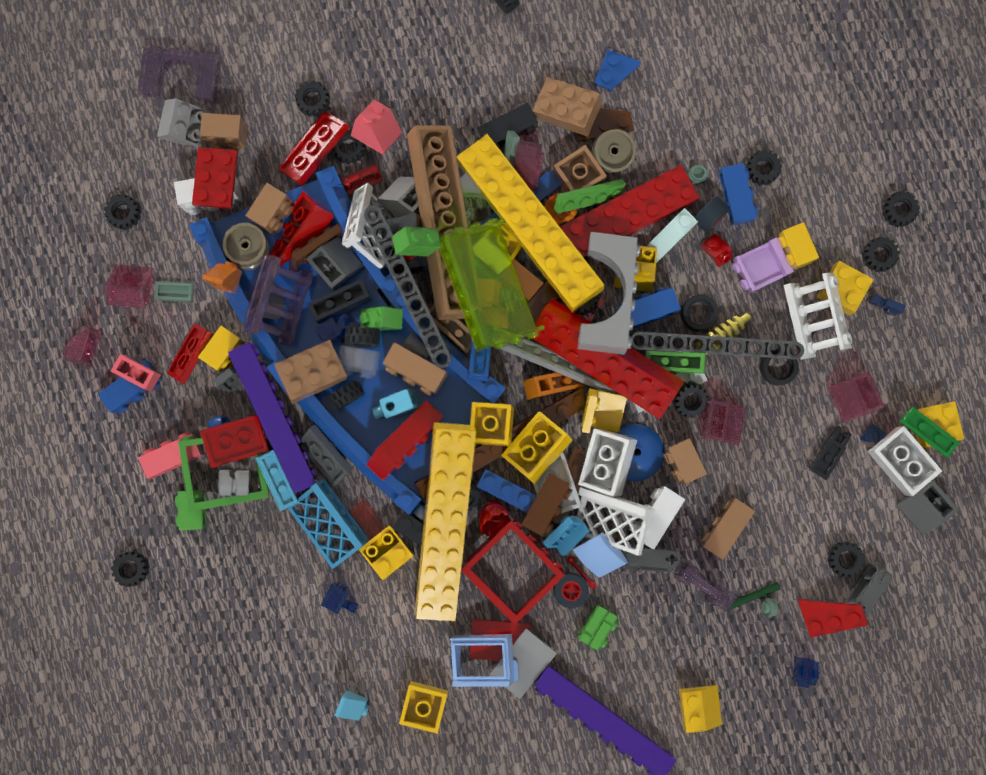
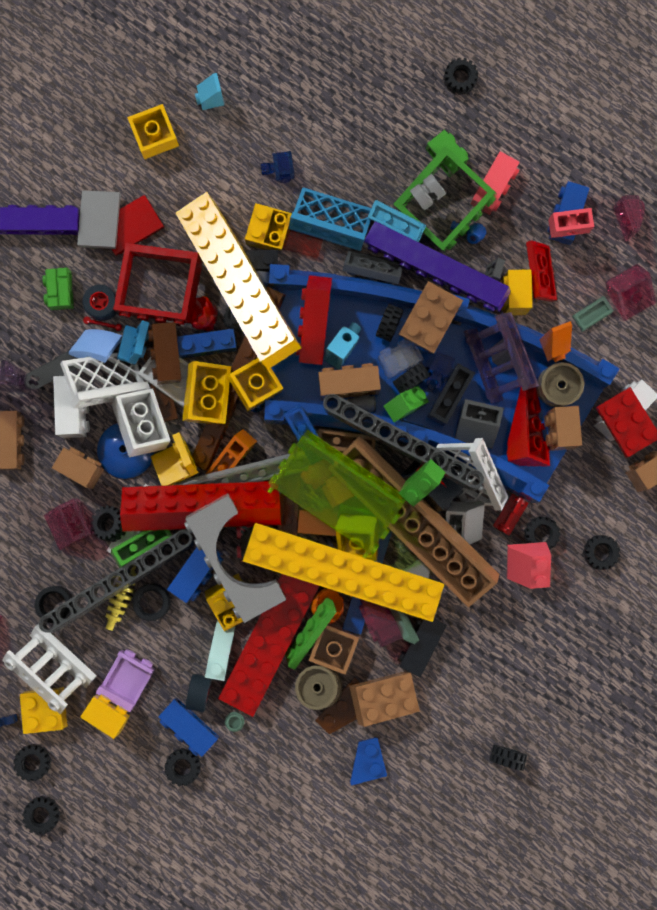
camera: 135 degrees right, 0 degrees up
(234, 441) = (452, 225): red tile -> none
(300, 254) = (506, 426): reddish brown wing -> none
(313, 148) = (569, 510): red tile -> none
(510, 665) = (138, 216): light blue piece -> none
(717, 250) = (173, 667): red bracket -> none

